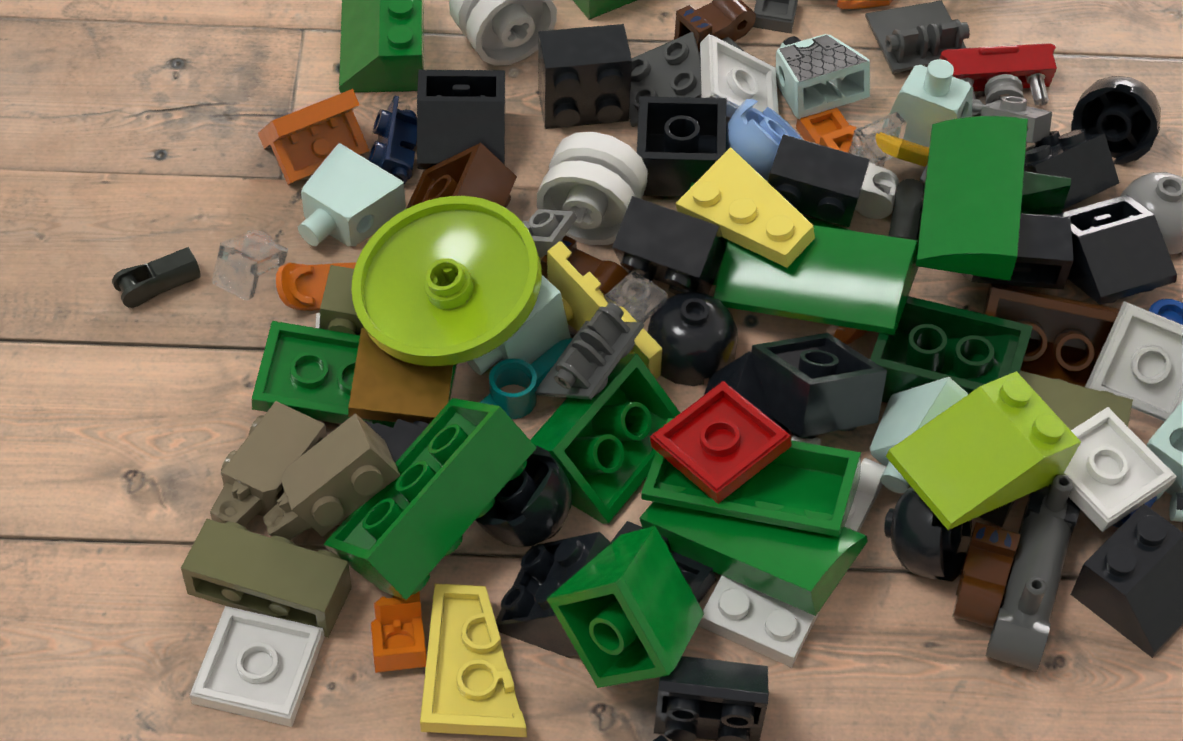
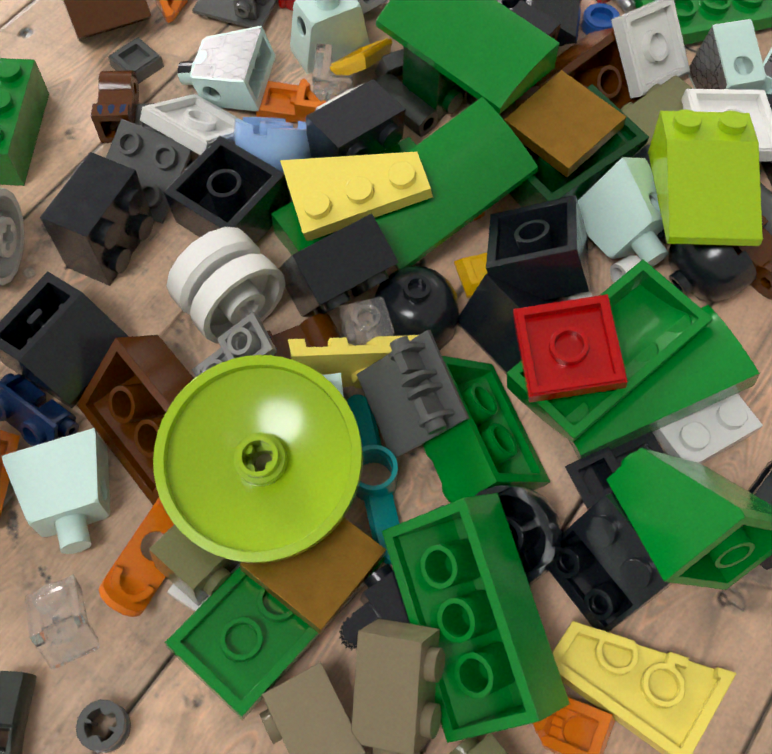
camera: 55 degrees left, 10 degrees up
(188, 323) = (86, 721): none -> dark grey bush
(960, 323) = (565, 123): none -> pearl gold tile

